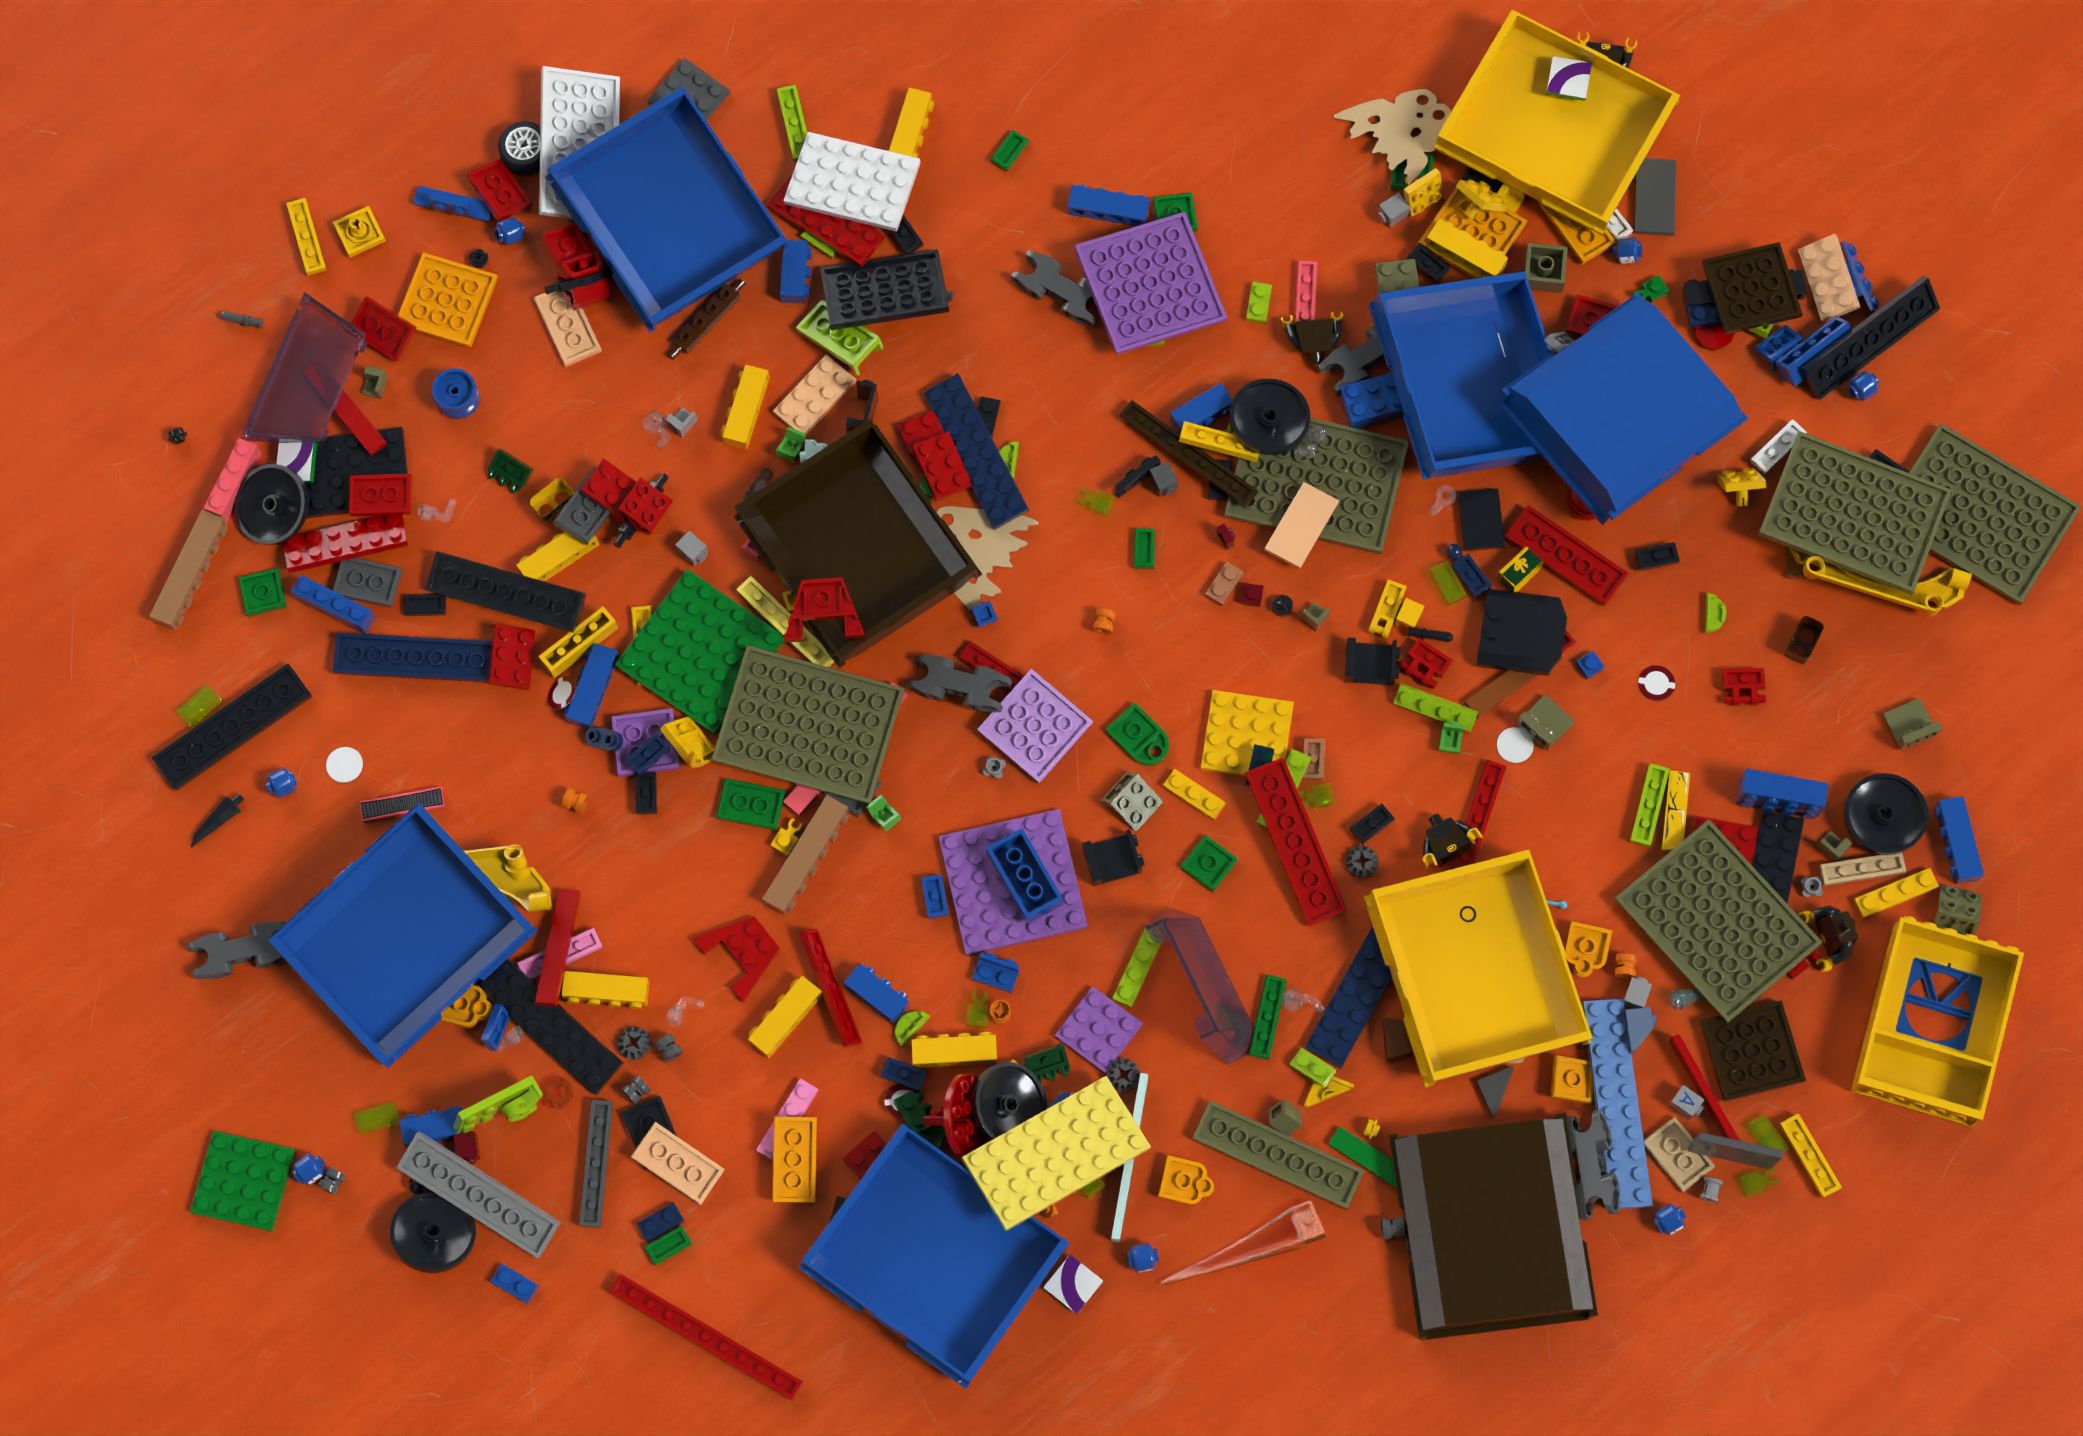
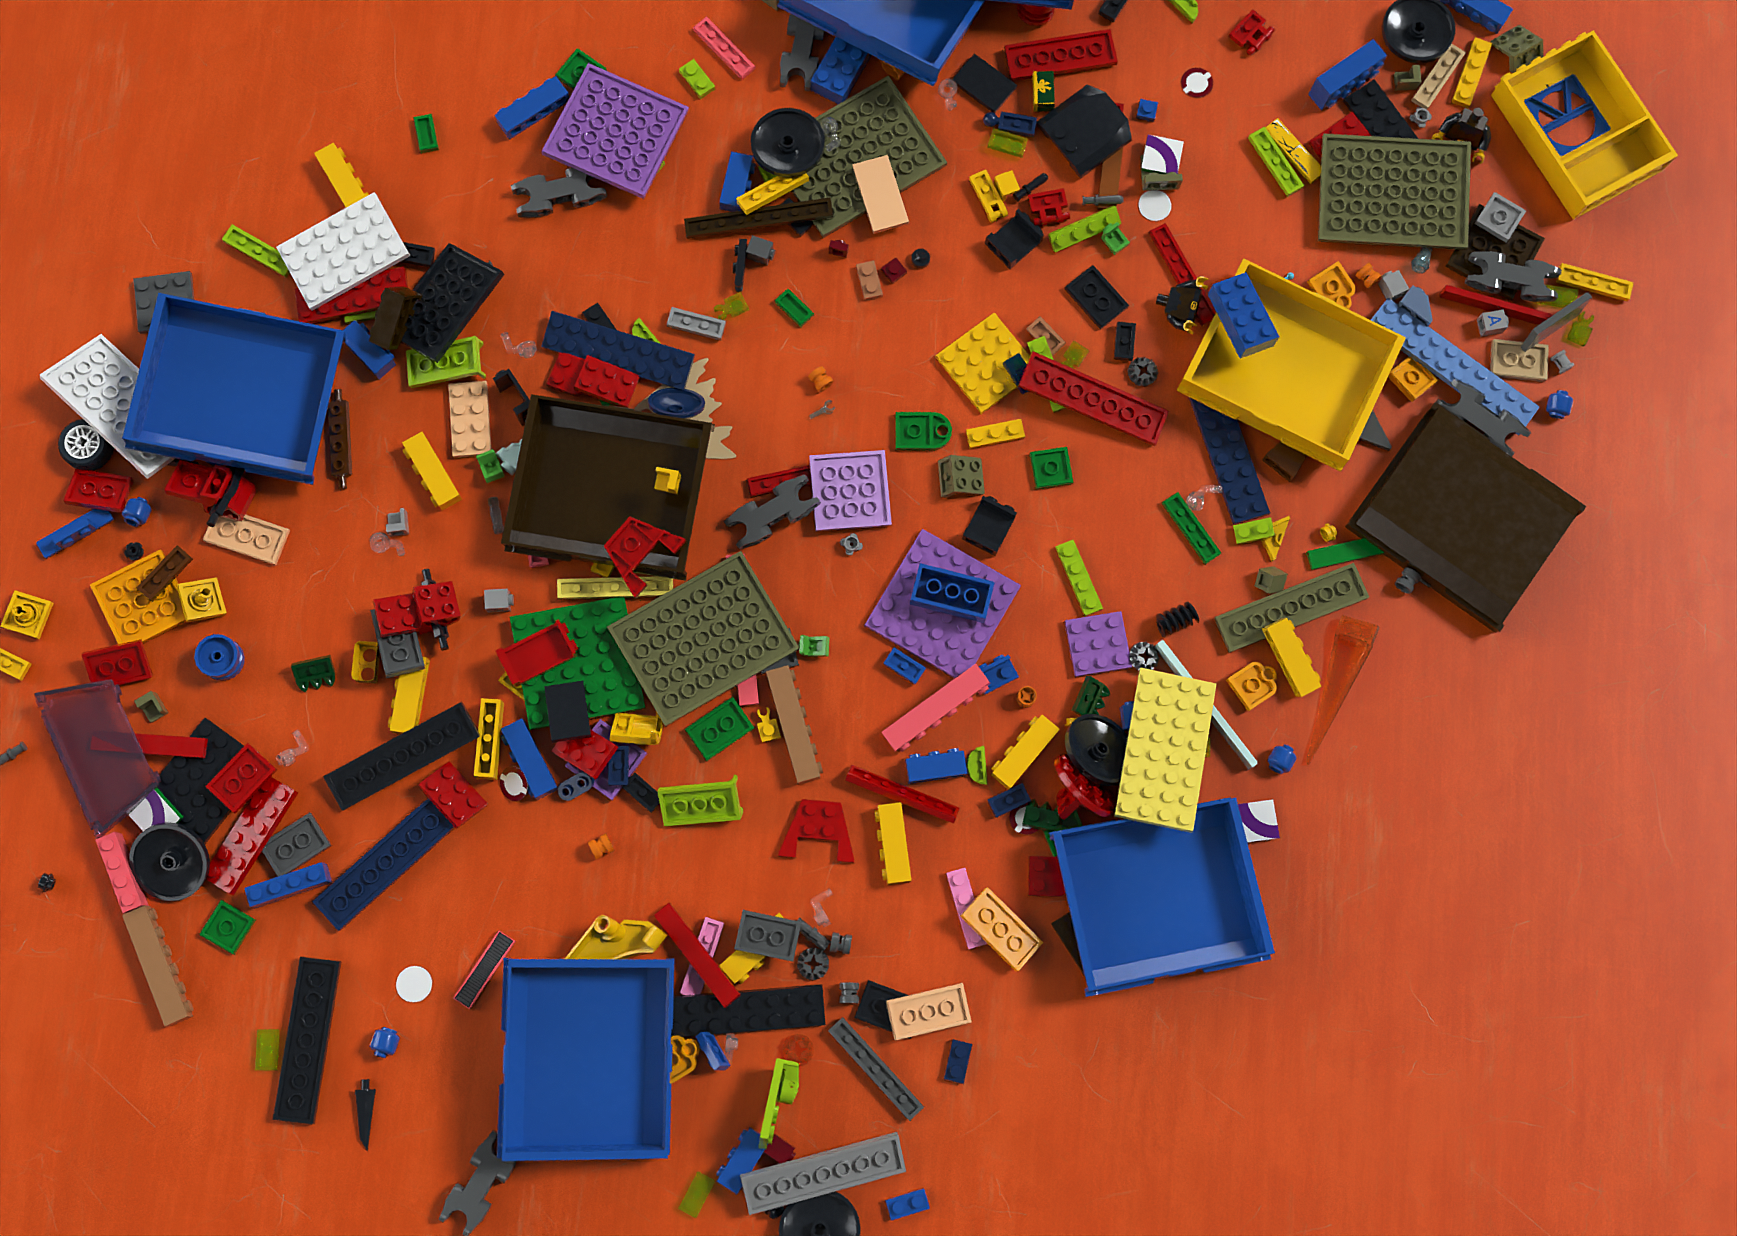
camera: 55 degrees left, 5 degrees up
(425, 605) = (353, 820): black tile -> none
(481, 295) = (164, 573): none -> reddish brown plate
(487, 339) = (201, 599): none -> yellow plate
(620, 984) = (767, 935): none -> dark grey plate
(637, 718) = (587, 753): none -> red plate
(653, 677) = (567, 711): none -> black tile
(655, 1019) = (813, 935): none -> dark grey pin
(668, 1245) = (979, 1071): green tile -> none
(676, 614) = (537, 653): none -> red panel
(676, 841) = (700, 803): none -> lime plate
(706, 1337) = (1068, 1104): red plate -> none
(835, 263) = (392, 316): none -> dark brown wedge
(898, 579) = (667, 480): none -> yellow panel
(909, 383) = (525, 349): none -> clear plate
(922, 949) = (936, 707): none -> coral brick
(974, 531) = (676, 403): none -> dark blue dish
(978, 1013) = (1012, 712): clear neon green plate -> none
(984, 614) = (738, 451): blue plate -> none
(1056, 488) = (696, 323): none -> light grey plate
(1082, 647) = (823, 410): none -> clear light blue hand
(1178, 1071) = (1175, 618): none -> black piece
(1225, 1023) = (1085, 527): windscreen -> none
(1233, 1190) = (1292, 657): none -> yellow brick
(1313, 335) = (756, 65): dark brown torso -> none
(1315, 616) = (949, 244): olive panel -> none
(1388, 769) = (1096, 297): none -> black tile
(1473, 889) = (1243, 315): none -> blue brick
(1475, 700) = (1114, 199): none -> dark grey piece
(1560, 710) = (1161, 155): none -> tile
(1749, 1094) = (1501, 274): none -> dark grey piece
(1784, 1025) = (1500, 217): none -> light grey plate

